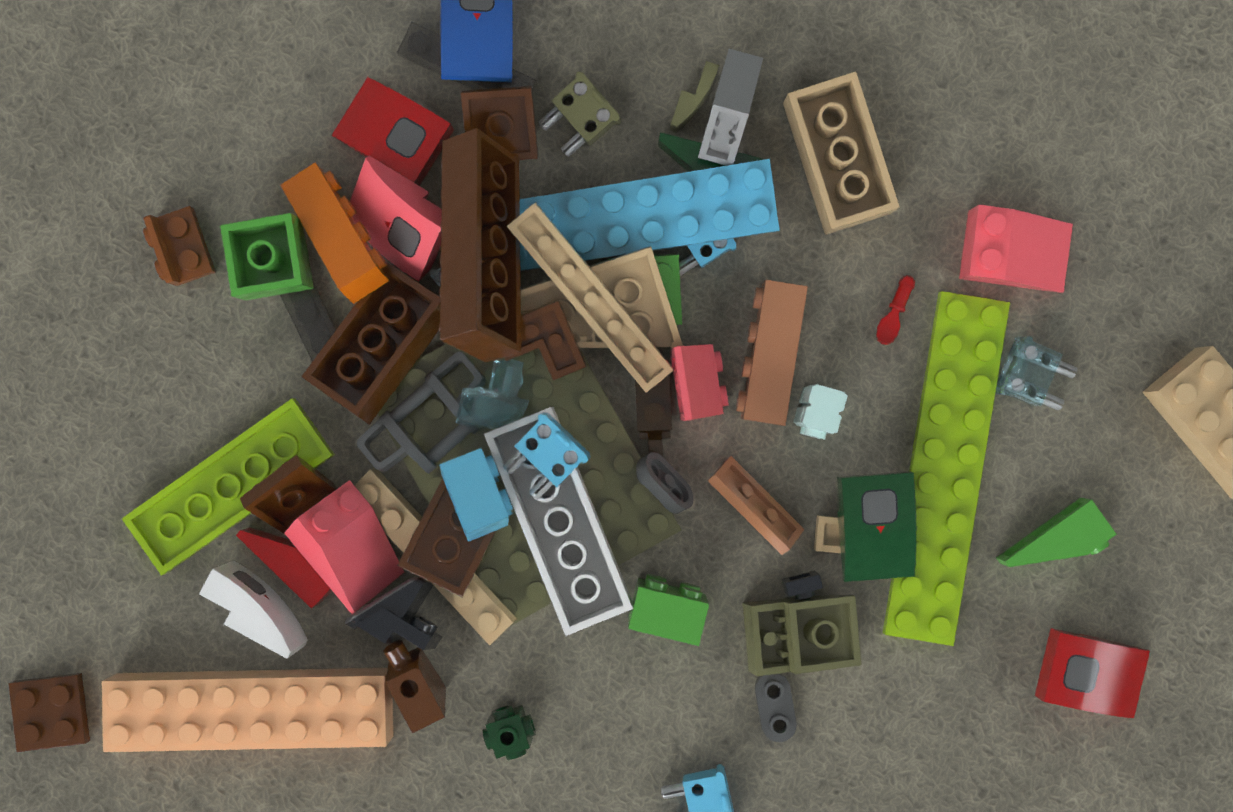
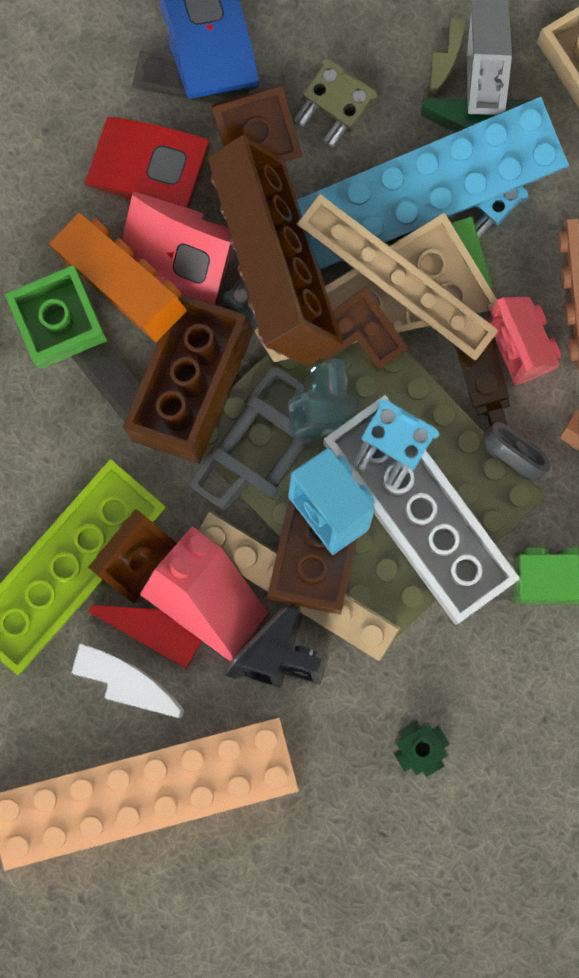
camera: 15 degrees left, 5 degrees down
(415, 686) = (318, 725): reddish brown torso -> none

